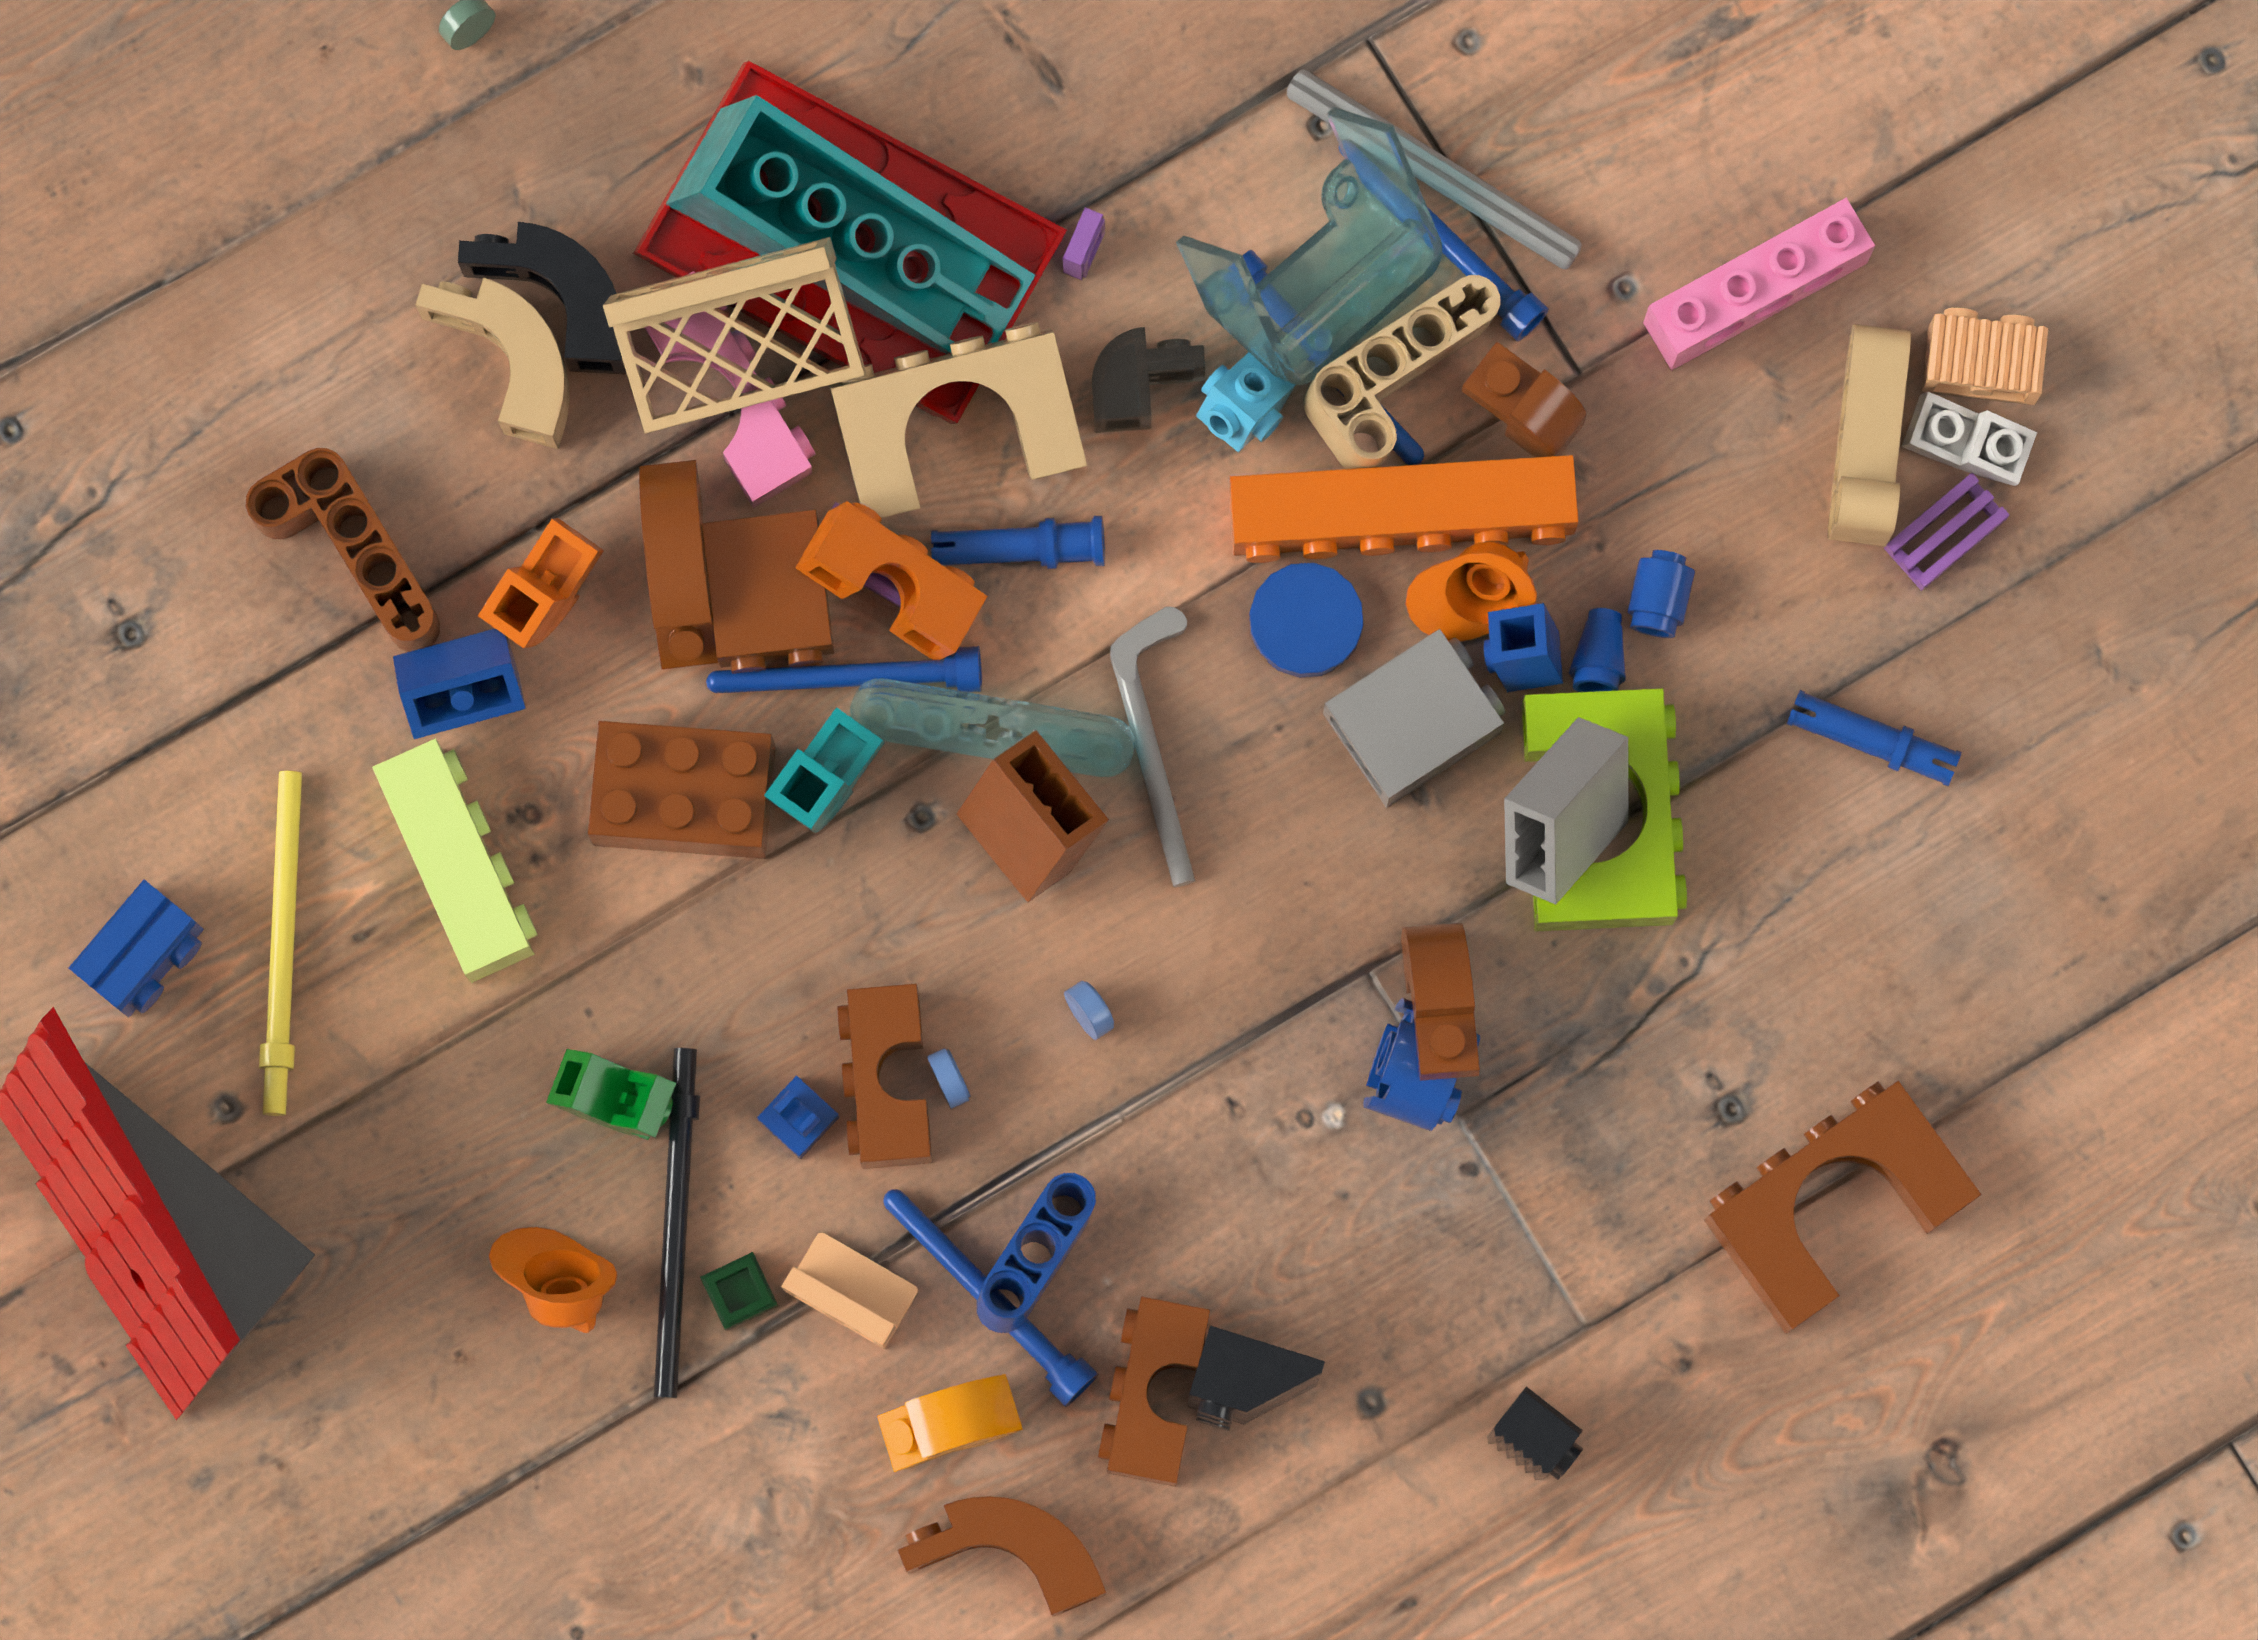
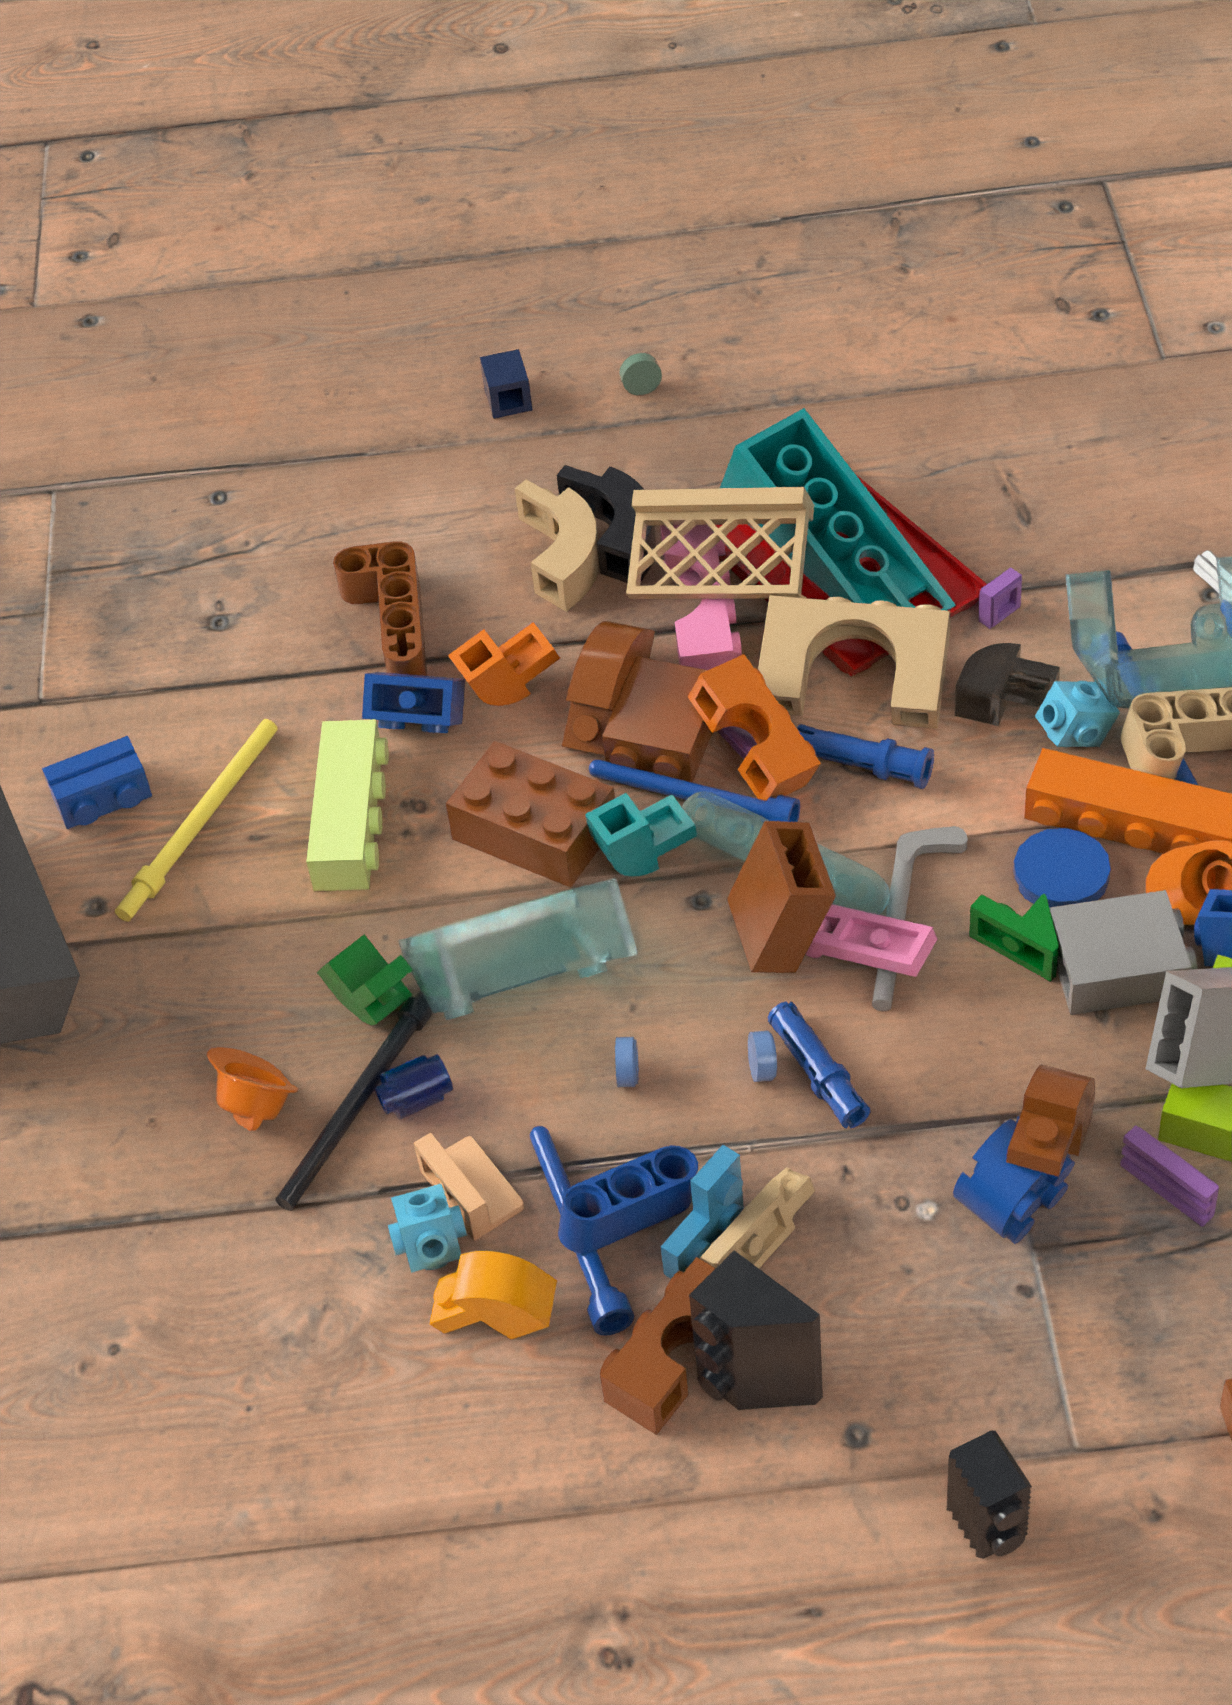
camera: 30 degrees right, 30 degrees down
(297, 105) = (506, 383): none -> dark blue brick
(734, 1204) = (413, 1086): none -> clear blue brick
(739, 1291) = (384, 1153): dark green tile -> none
(751, 981) = (520, 946): none -> clear light blue windscreen
(798, 1117) = (497, 1052): blue tile -> none
(842, 1374) = (426, 1228): none -> medium azure brick
(879, 1025) = (589, 1011): dark orange arch -> none
(1029, 1533) = (497, 1398): dark orange arch -> none
(1133, 1223) = (716, 1204): none -> dark azure plate
(1157, 817) = (873, 940): none -> bright pink plate
(1162, 1000) = (828, 1079): none -> blue pin
(1180, 1223) = (764, 1221): none -> tan hinge
(1314, 742) = (1023, 939): none -> green slope
(1568, 984) = (1169, 1175): none -> medium lavender tile

